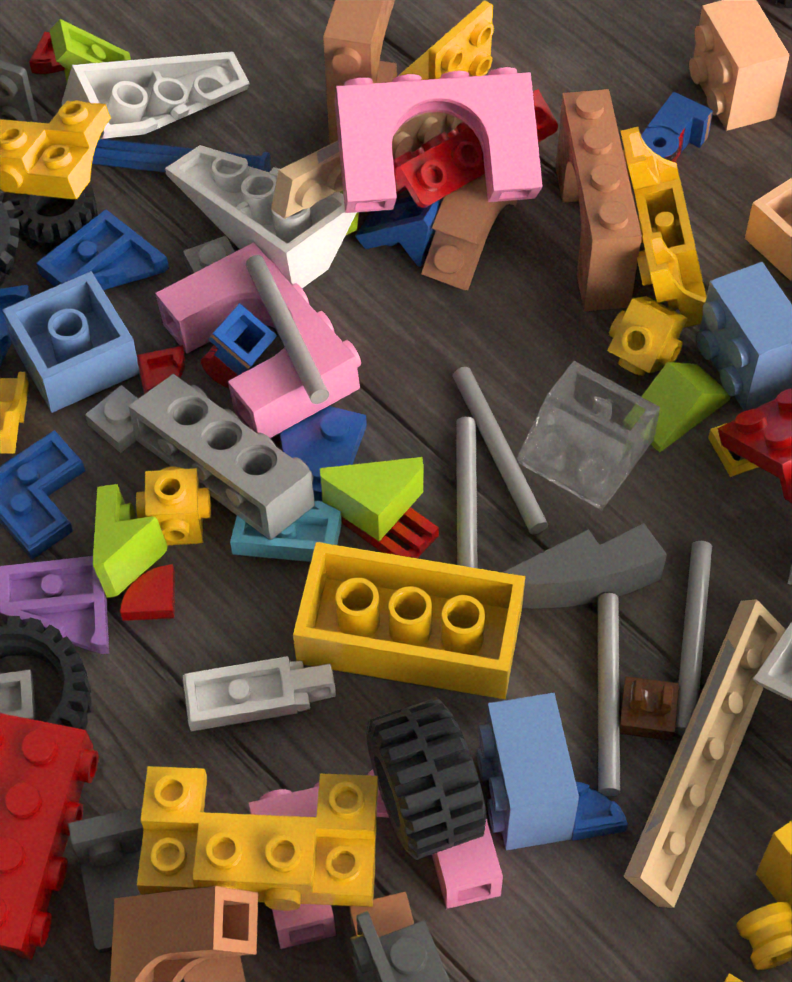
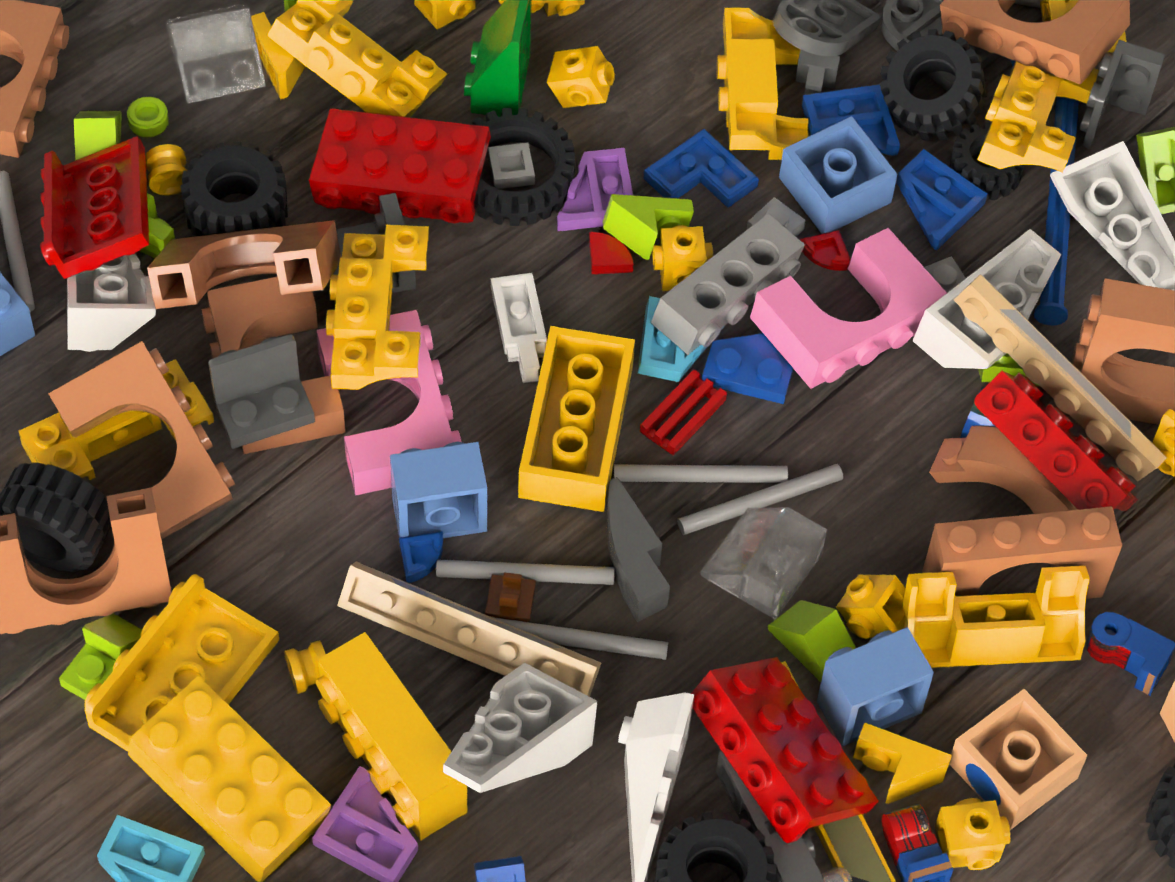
camera: 85 degrees right, 0 degrees up
(236, 346) = (833, 285): blue leg -> none
(287, 330) = (844, 312): light grey bar -> none
(373, 493) = (691, 391): lime slope -> none
(426, 778) = (411, 394): black tyre -> none
(492, 105) = (1064, 436): bright pink arch -> none

